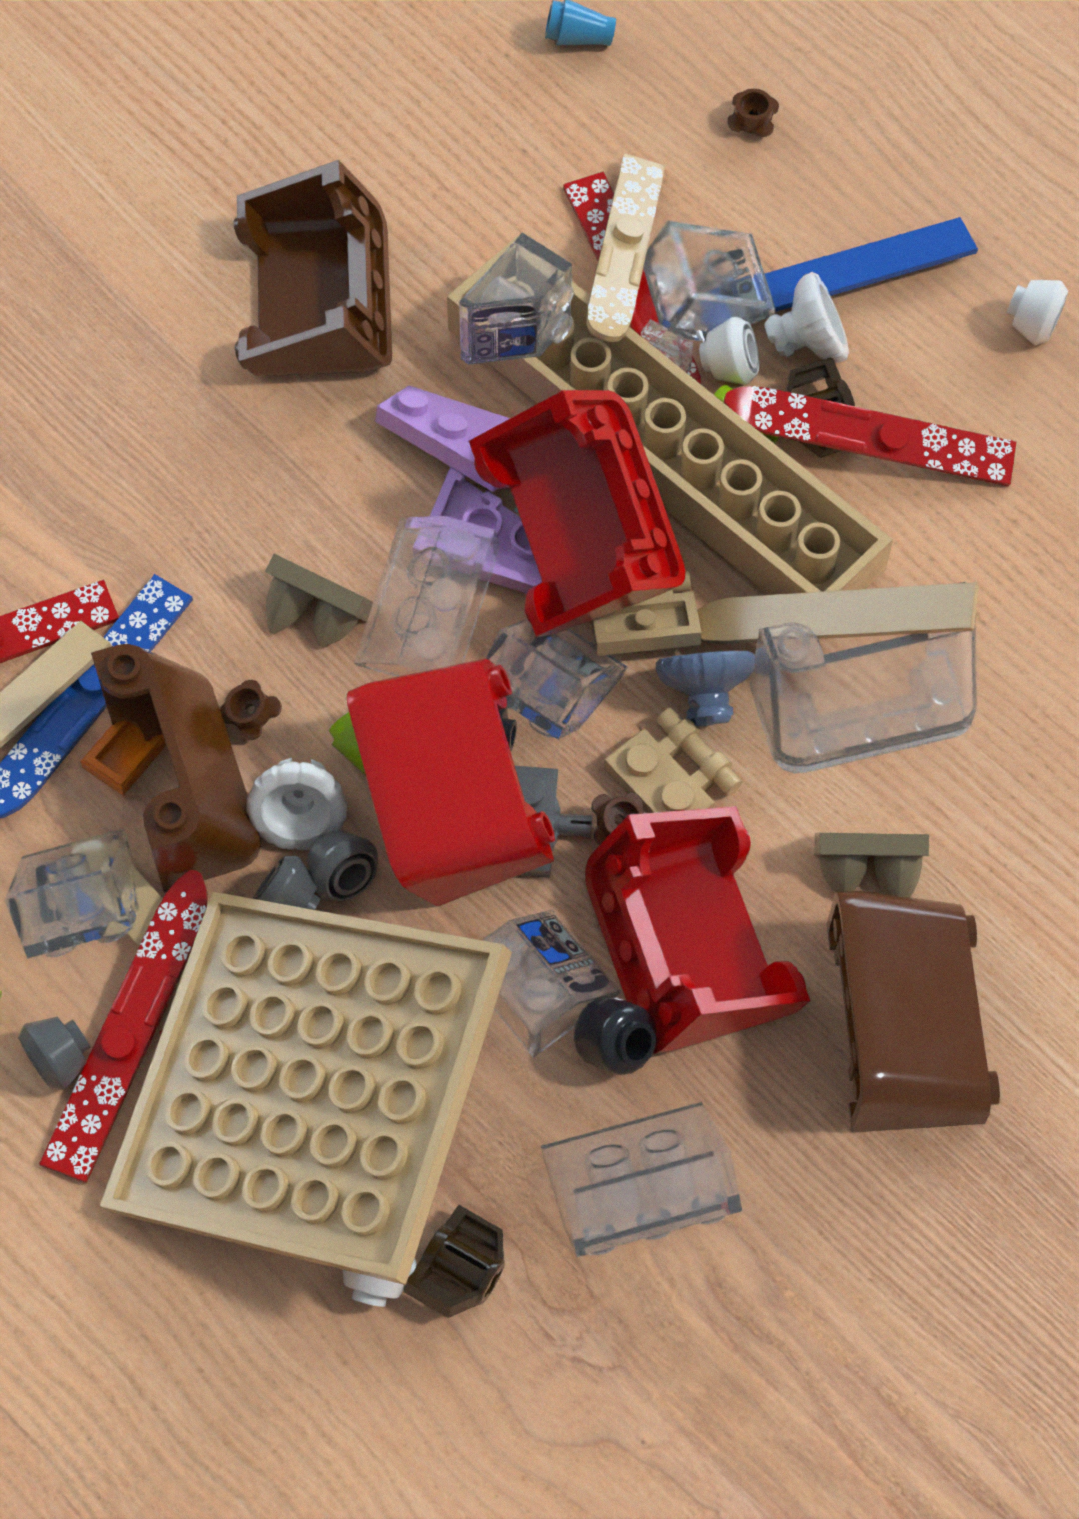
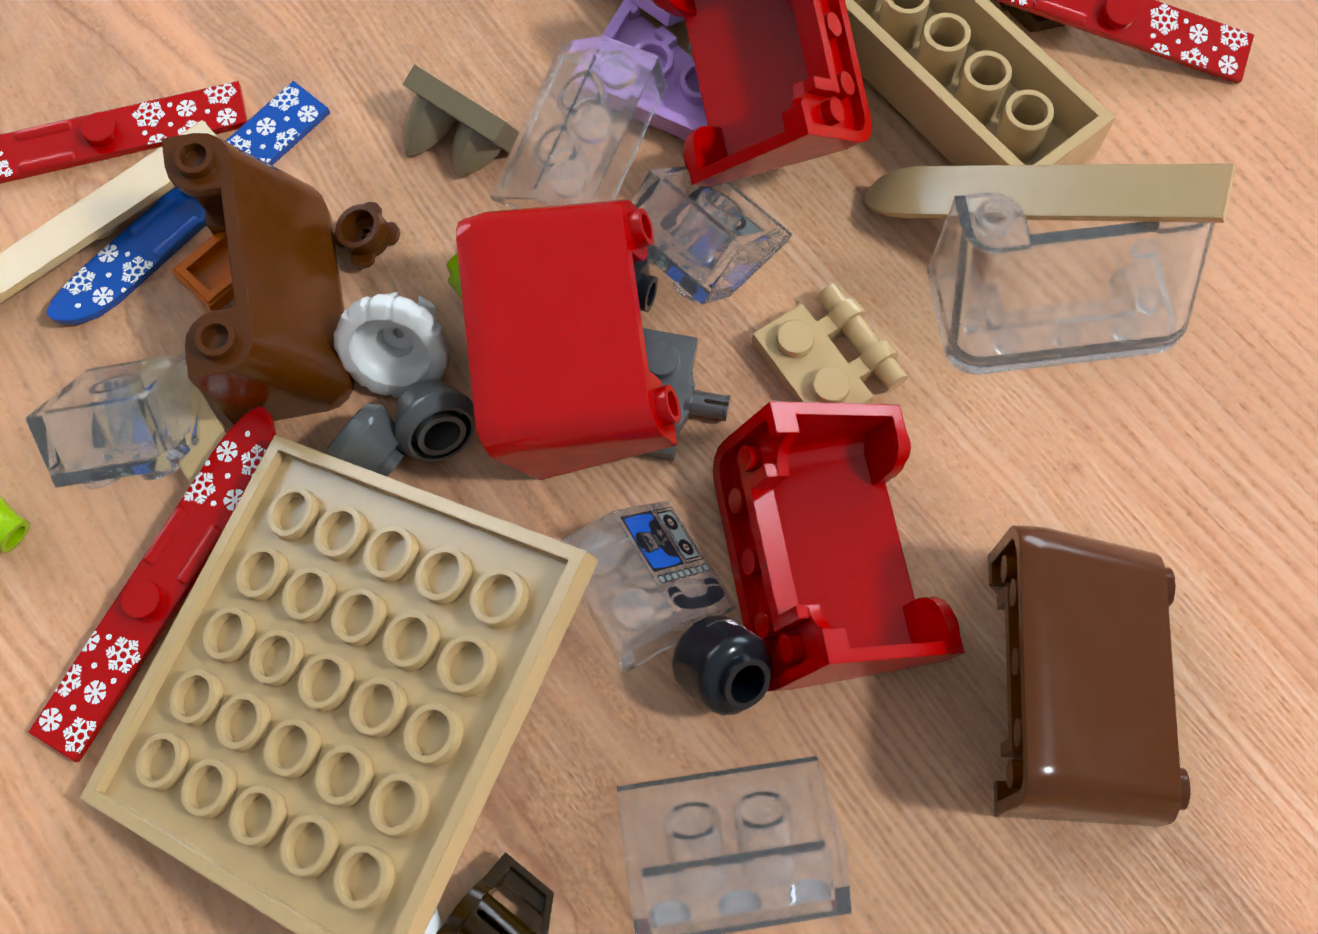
camera: 10 degrees right, 5 degrees up
(55, 1050) = (64, 600): dark grey cone -> none
(607, 808) = (748, 390): reddish brown plate -> none
(650, 625) = (824, 186): tan plate -> none
(707, 681) = (881, 255): sand blue hair -> none
(895, 860) = (1080, 486): dark tan tile -> none

